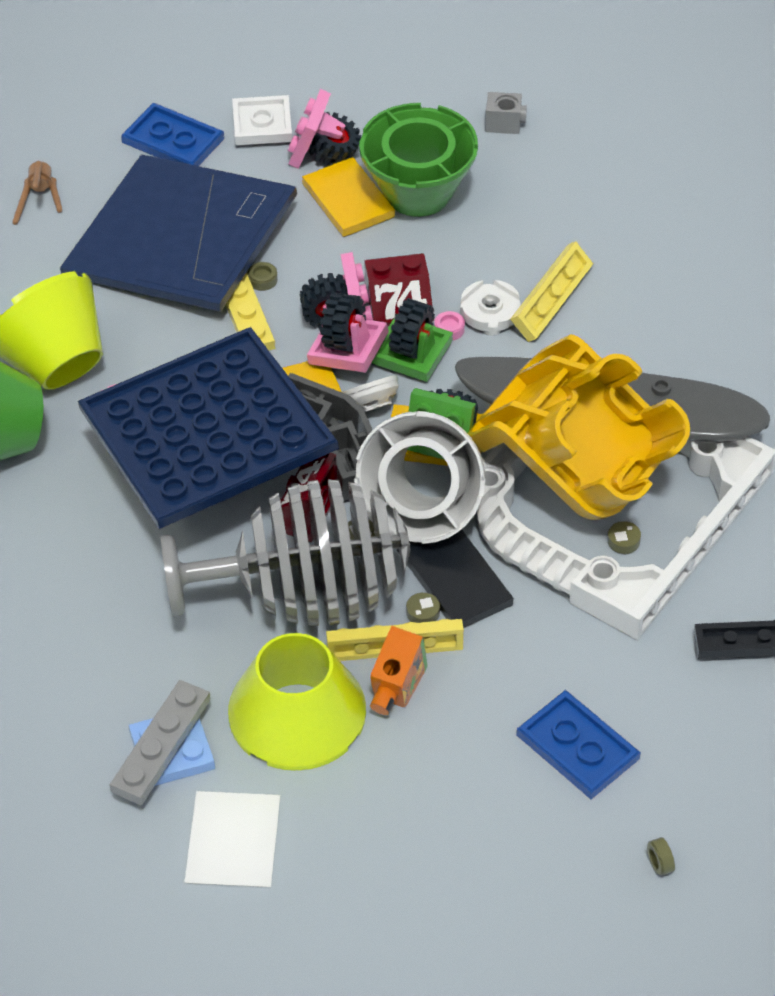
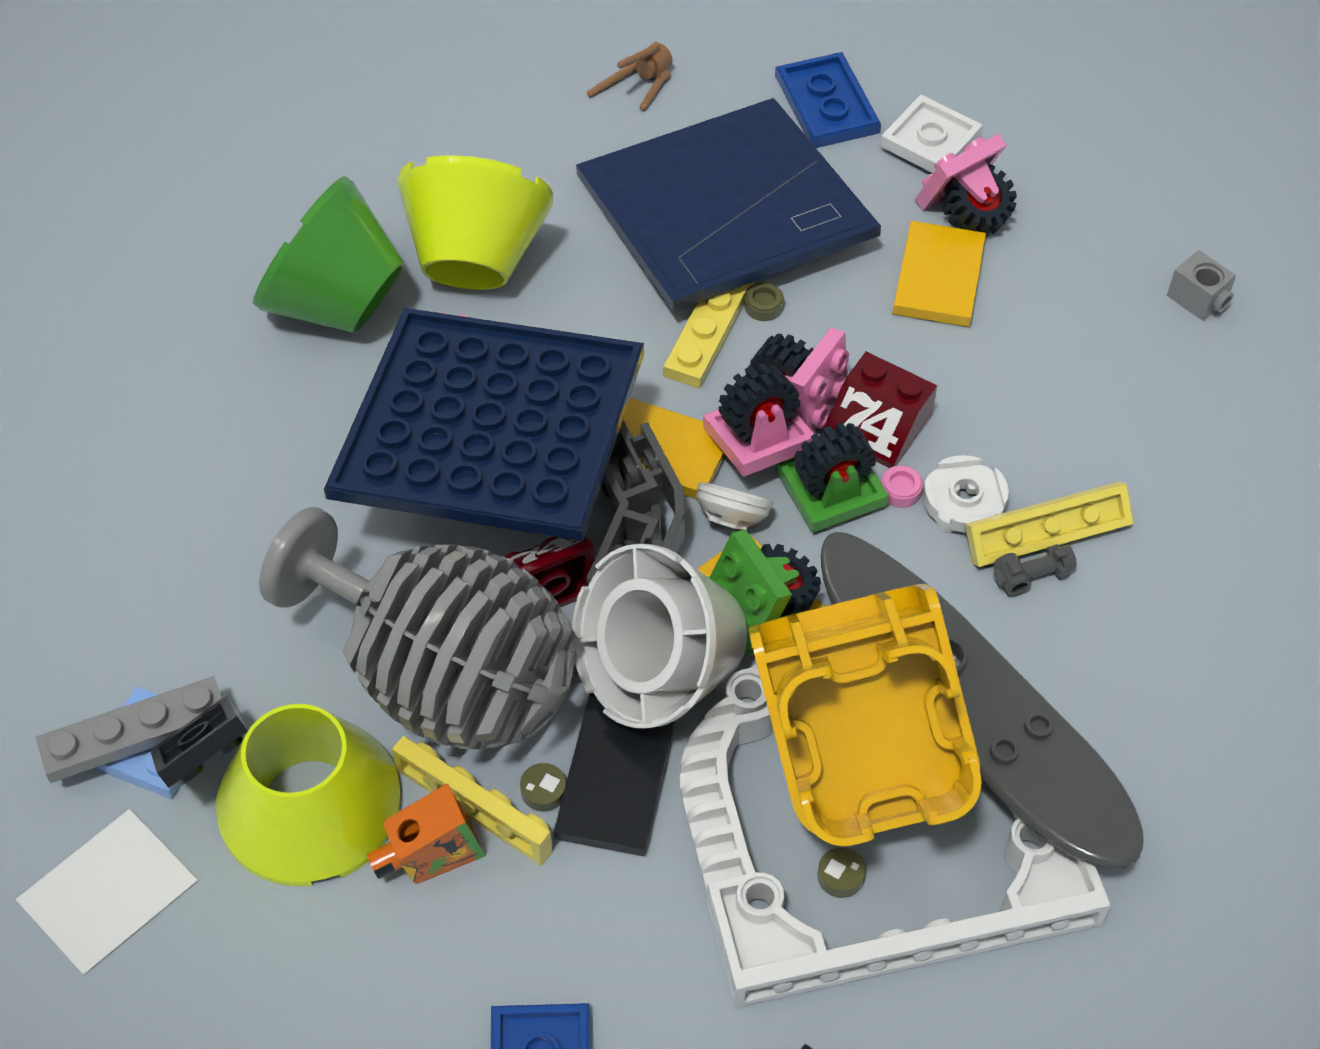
camera: 40 degrees right, 5 degrees up
(221, 708) = (211, 732): none -> black plate
(418, 155) = (1032, 269): bright green cone -> none
(558, 329) = (1015, 575): none -> dark grey bar

